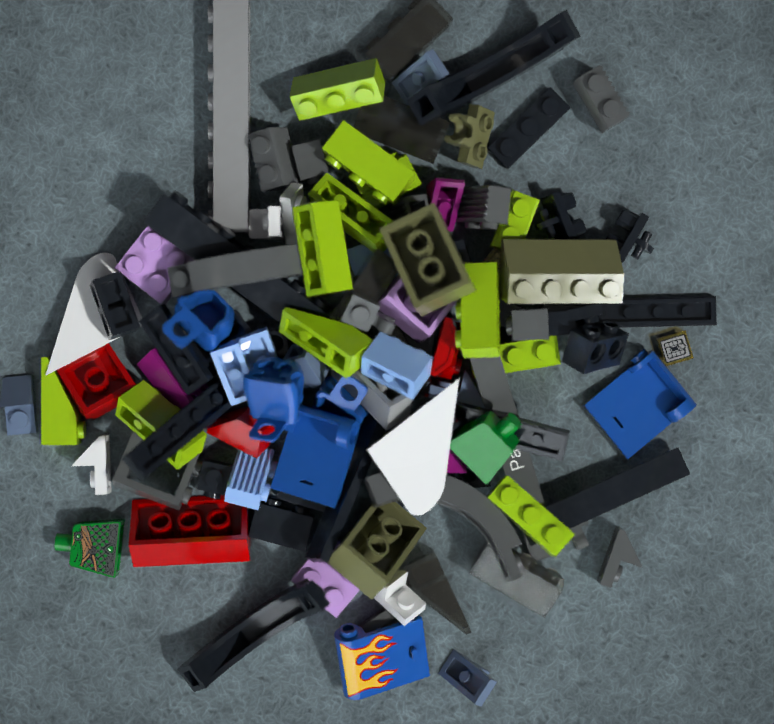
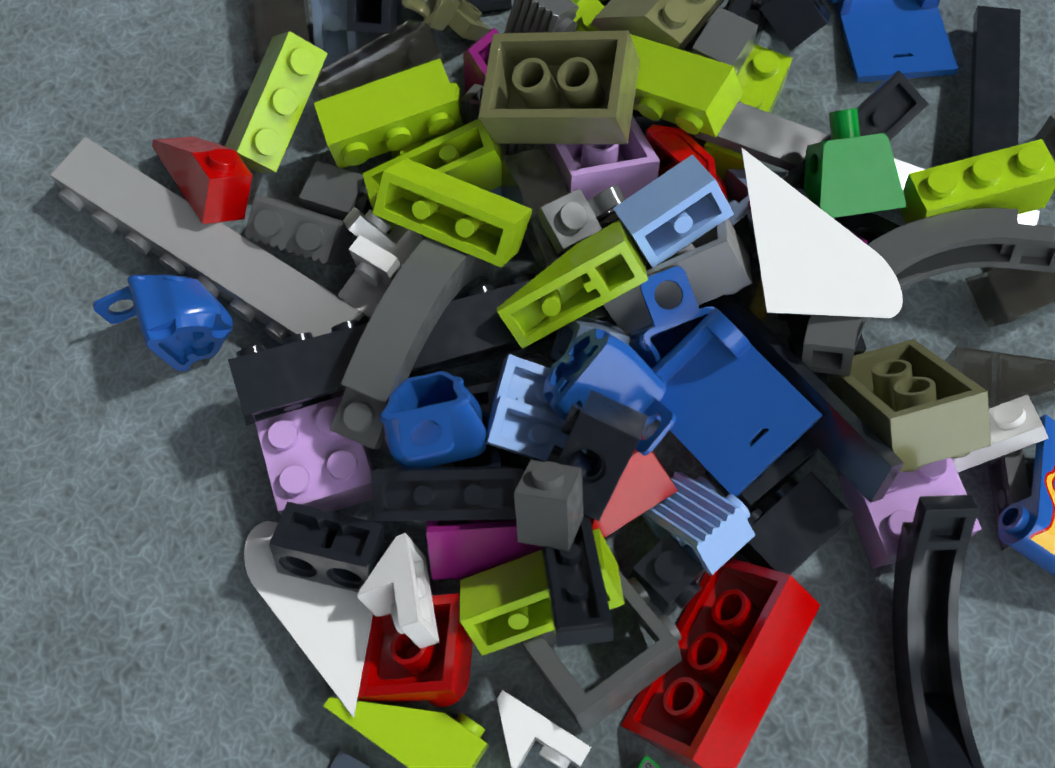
camera: 55 degrees left, 20 degrees down
(122, 355) = (403, 589): none -> white slope
(179, 133) = (175, 316): none -> blue piece
(192, 407) = (549, 504): none -> dark grey brick
(233, 411) = (609, 431): none -> black brick
(271, 81) = (208, 177): none -> red slope

